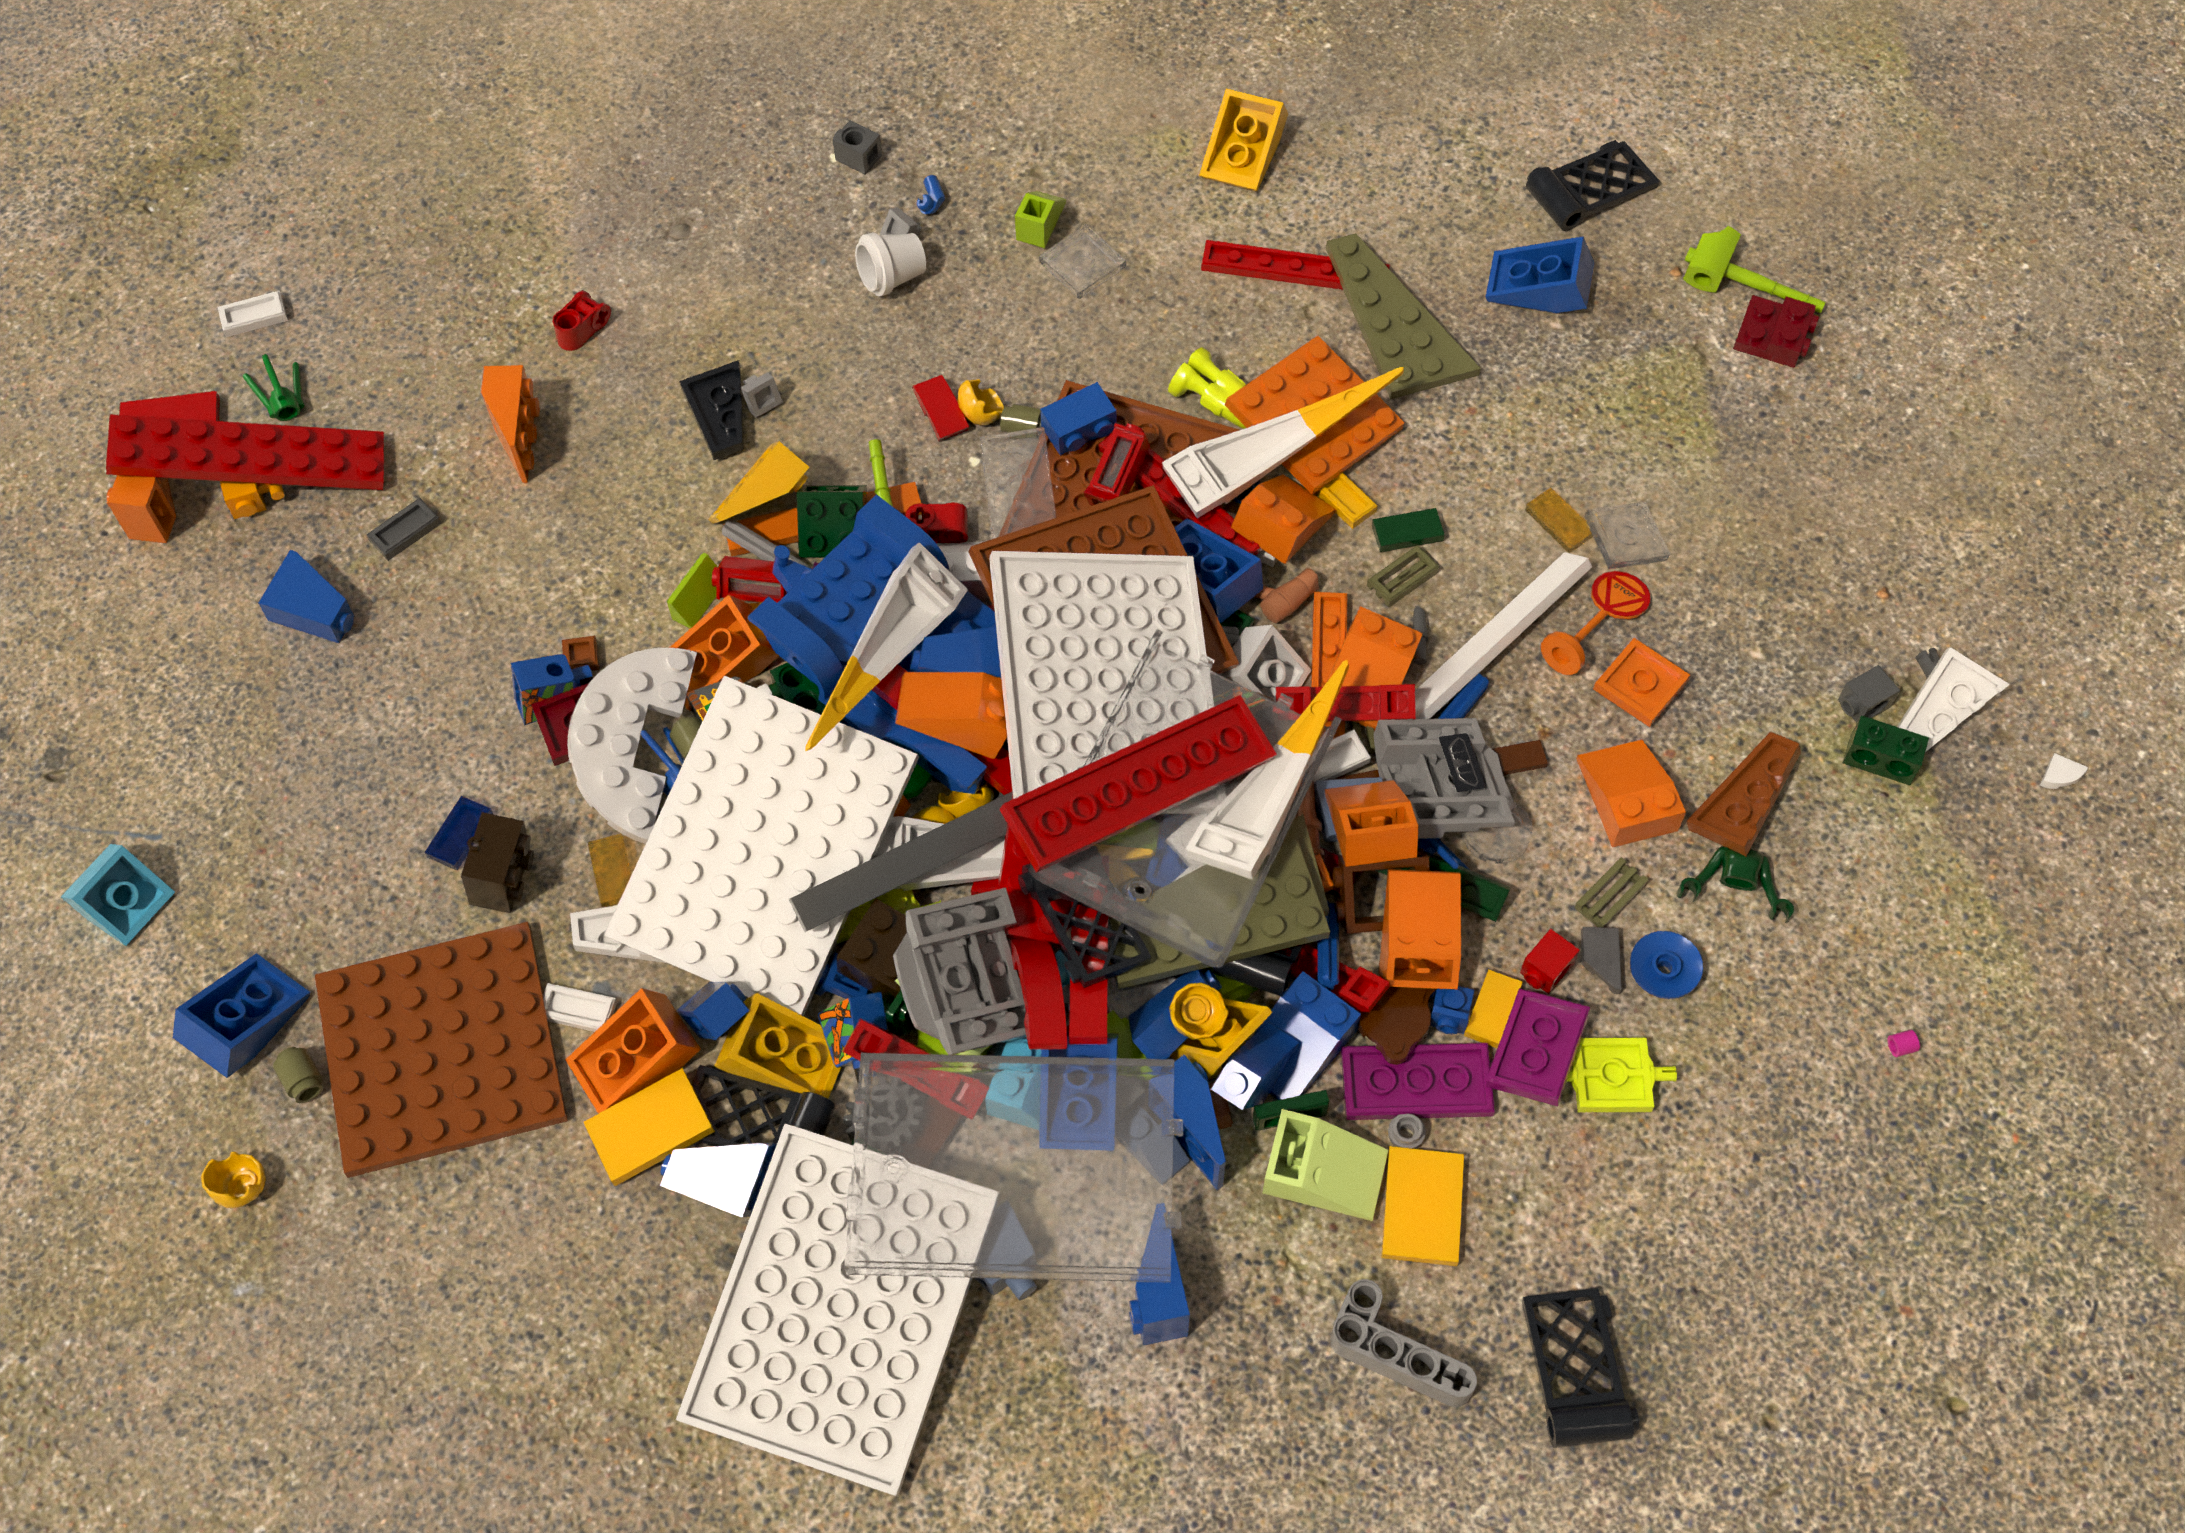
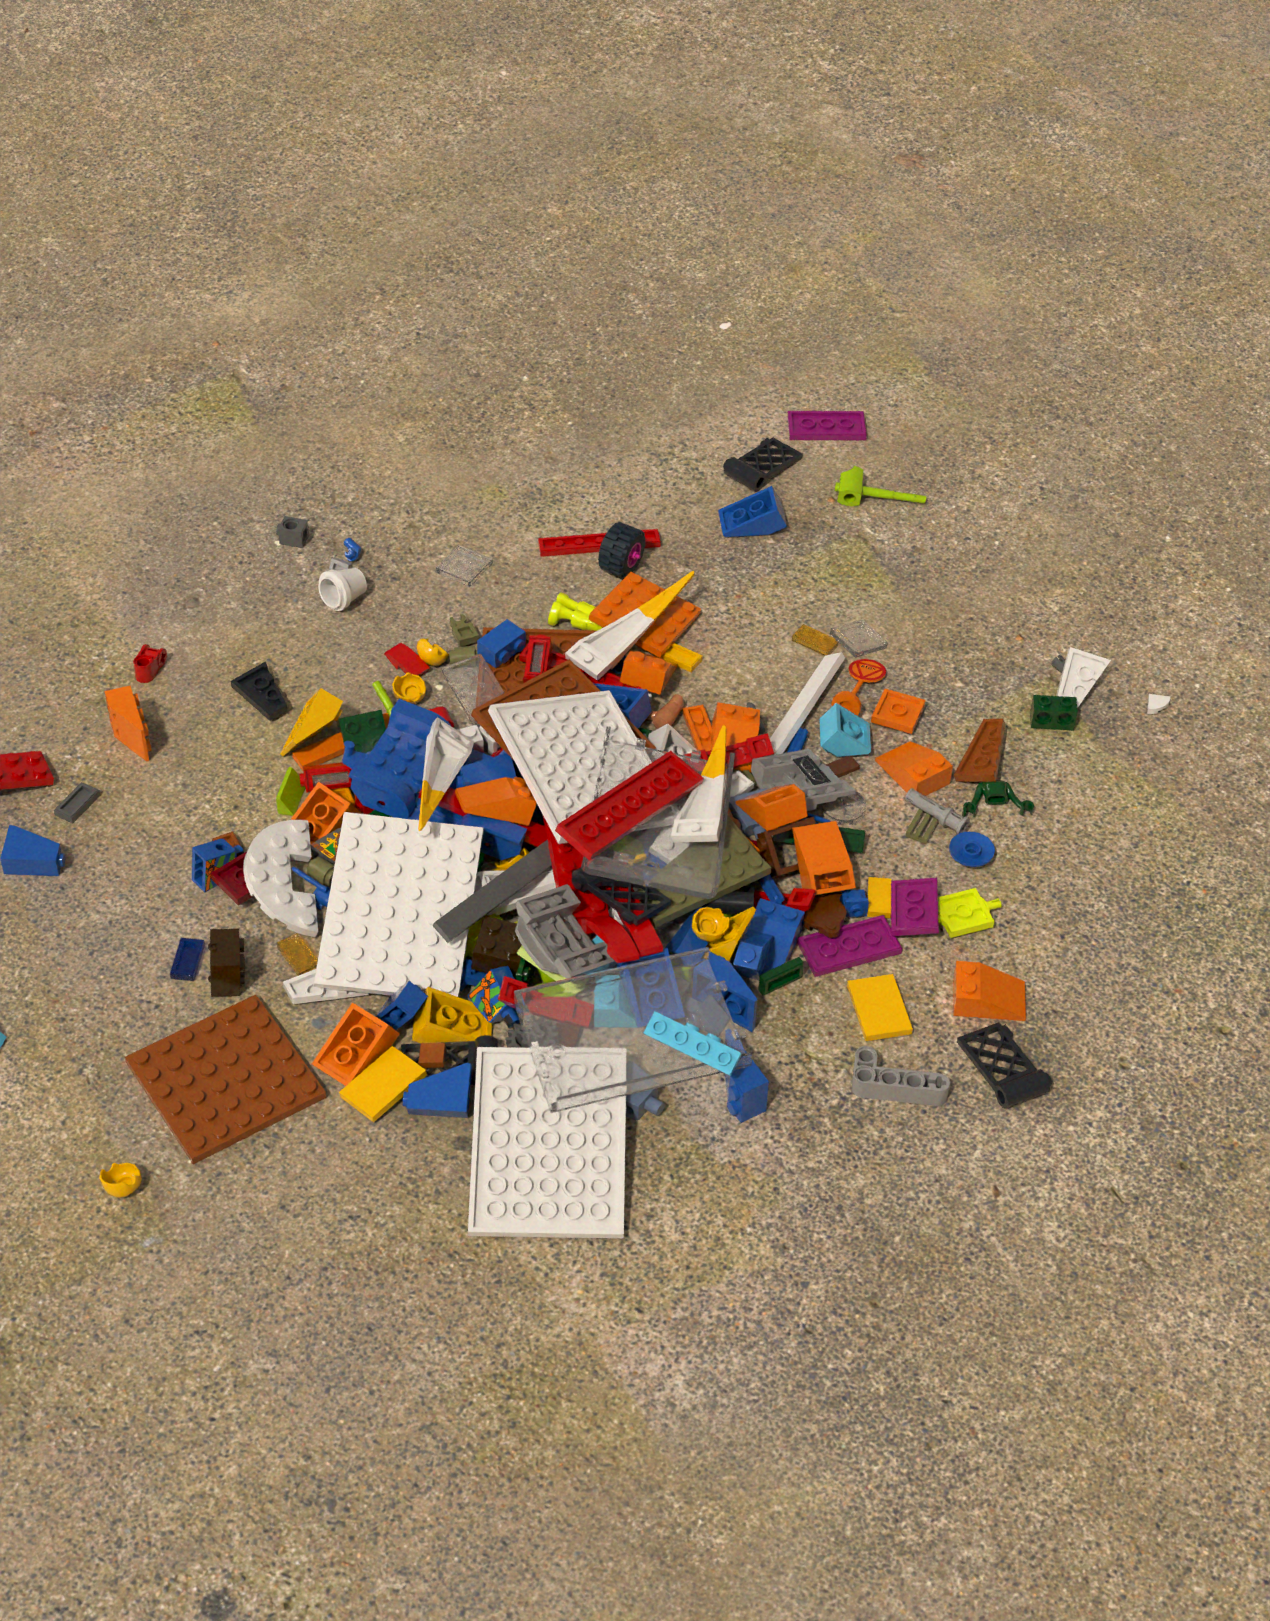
camera: 20 degrees left, 15 degrees down
(238, 1014) = (82, 1091): blue slope -> none
(298, 1074) = (138, 1112): olive brick -> none
(577, 1007) = (307, 1034): white tile -> none
(732, 1101) = (432, 1055): none -> dark orange tile
(752, 541) = (316, 756): light grey axle -> none
(761, 394) = (287, 677): light grey tile -> none
(923, 458) = (409, 688): none -> yellow hair
(1037, 217) = (427, 547): lime slope -> none
(1040, 377) = (463, 632): none -> olive plate
(1090, 1228) = (692, 1043): none -> medium azure bracket
(1244, 139) = (540, 479): yellow slope -> none
(1315, 295) = (621, 549): none -> black wheel
(1324, 1166) = (811, 998): yellowish green slope -> none
(1396, 323) = (676, 559): olive wing -> none
(1399, 593) = (736, 690): olive tile -> none
(1407, 530) = (725, 664): dark green tile -> none
(1409, 1122) = (854, 970): light grey plate -> none
(1542, 703) = (844, 732): none -> medium azure slope
(1549, 961) = (902, 863): red brick -> none
(1599, 1233) = (987, 993): none -> orange slope
(1602, 955) = (932, 855): flat silver tile -> none
(1646, 895) = (945, 815): none -> light grey pin
(1715, 138) = (826, 425): none -> magenta tile
(1777, 330) = (903, 516): dark red plate -> none
(1868, 694) = (1032, 684): dark grey brick -> none
(1903, 1043) = (1122, 857): dark pink piece -> none

